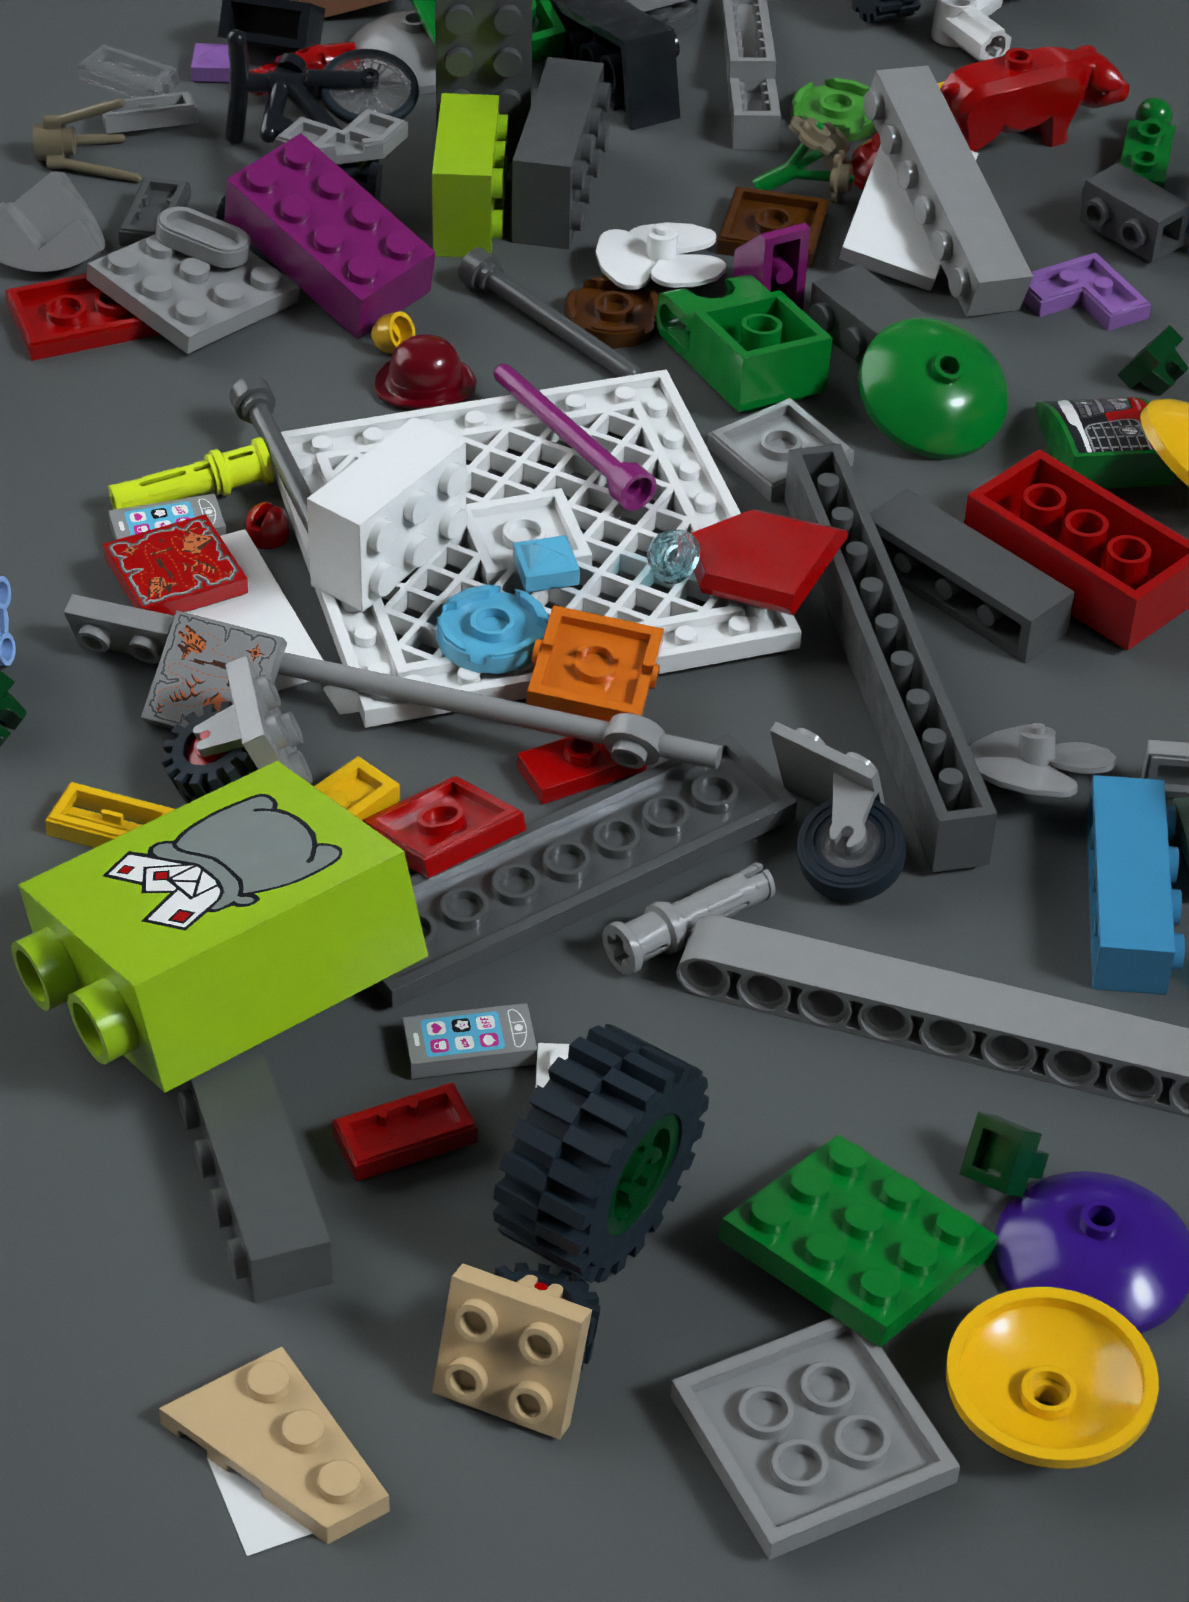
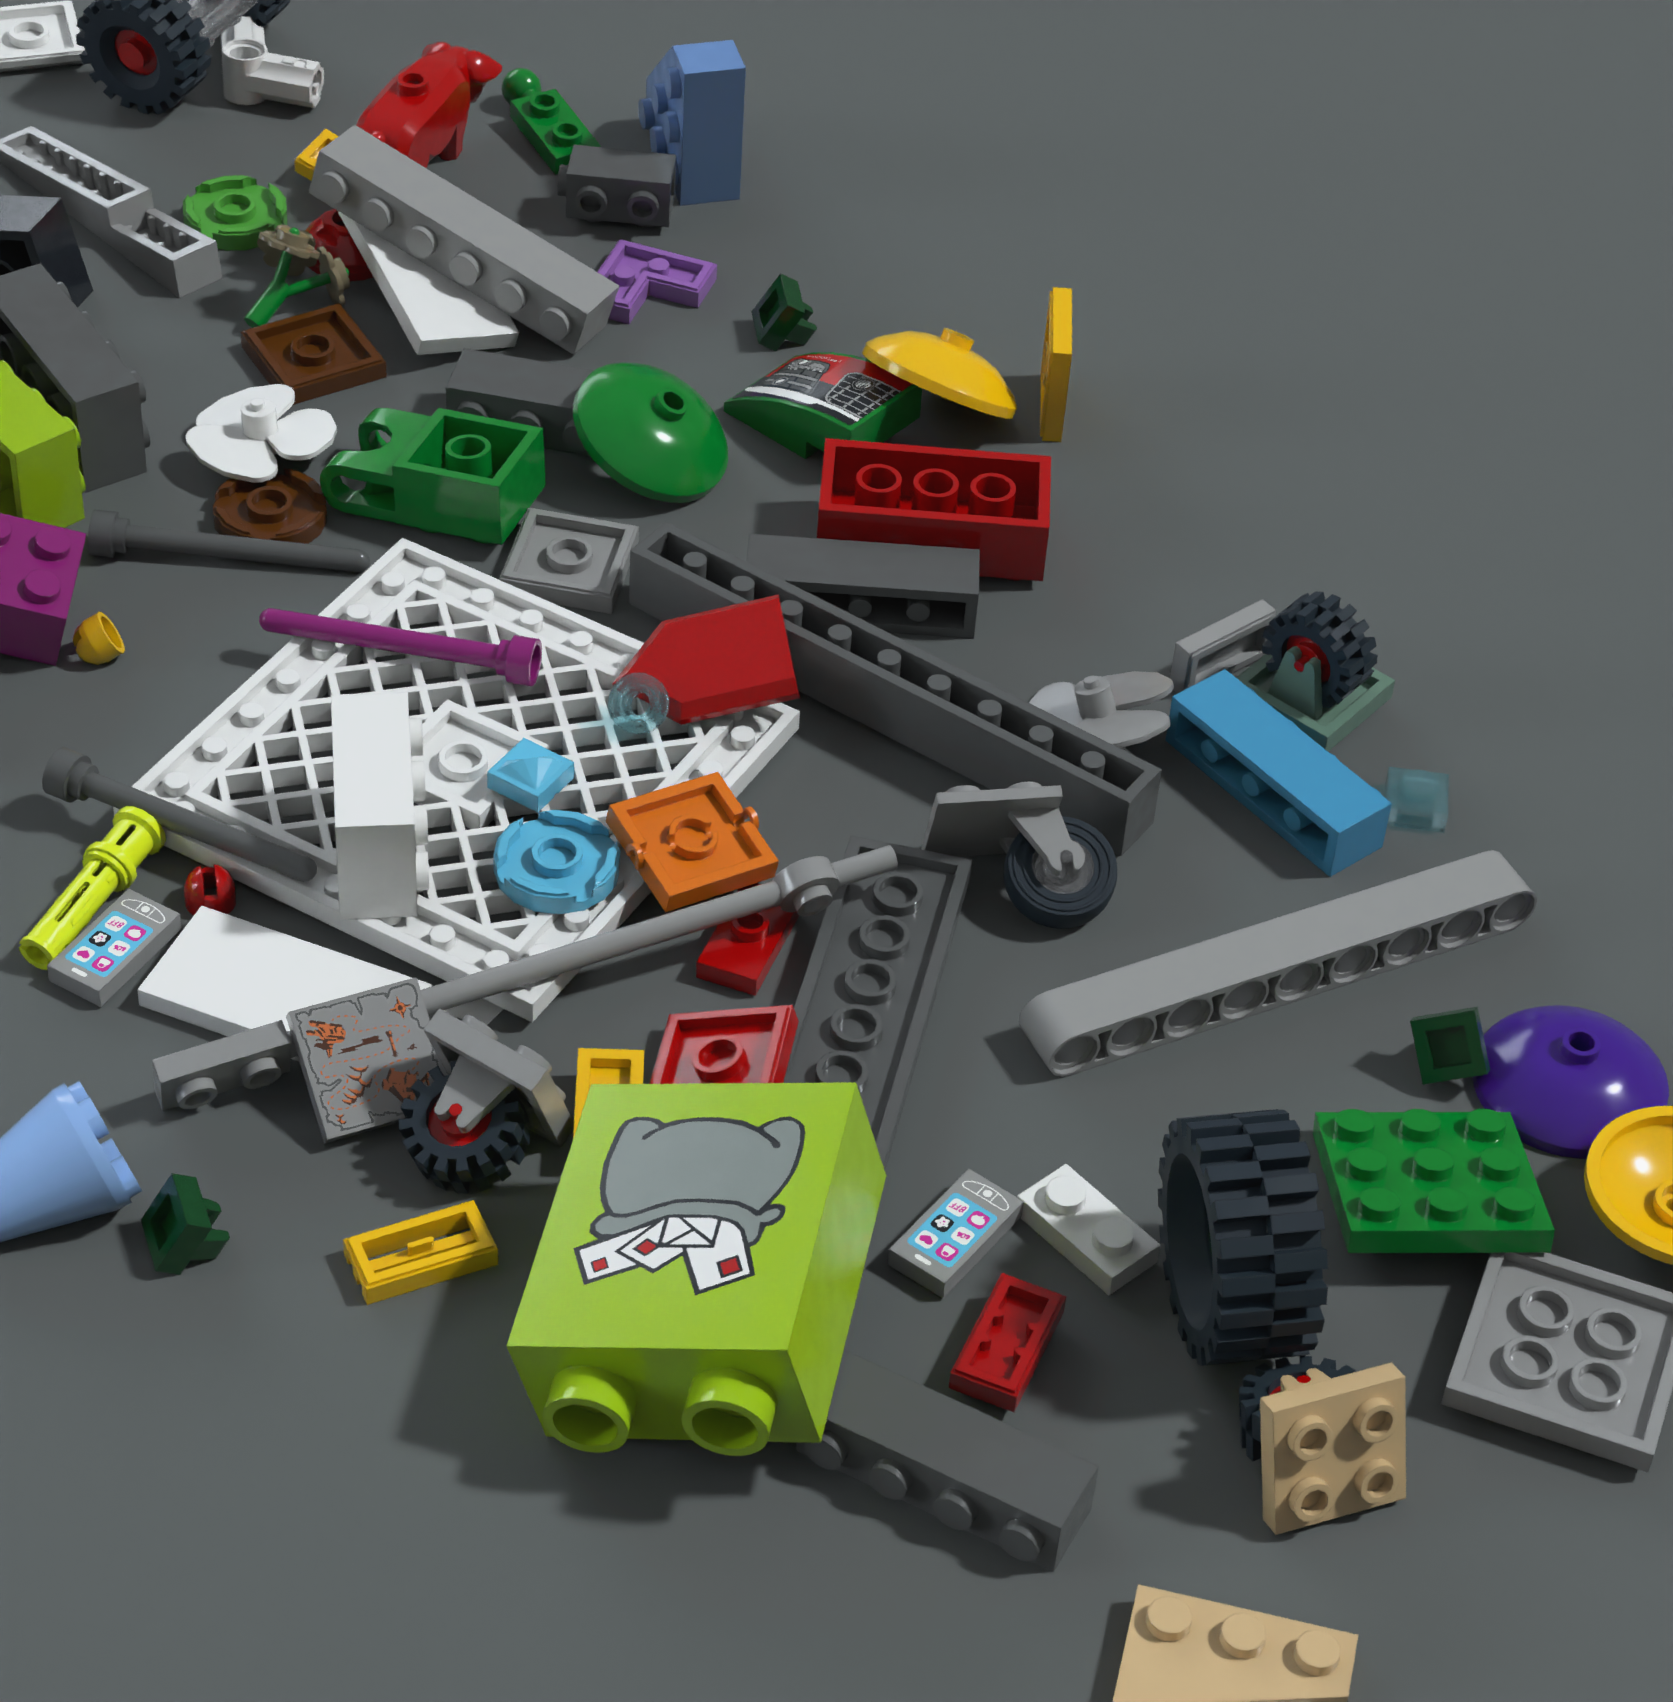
camera: 45 degrees left, 0 degrees up
(176, 567) = (194, 979): red tile -> none
(424, 375) = (176, 665): dark red hat -> none
(668, 926) = (994, 1030): light grey pin -> none
(777, 260) = (386, 380): magenta slope -> none

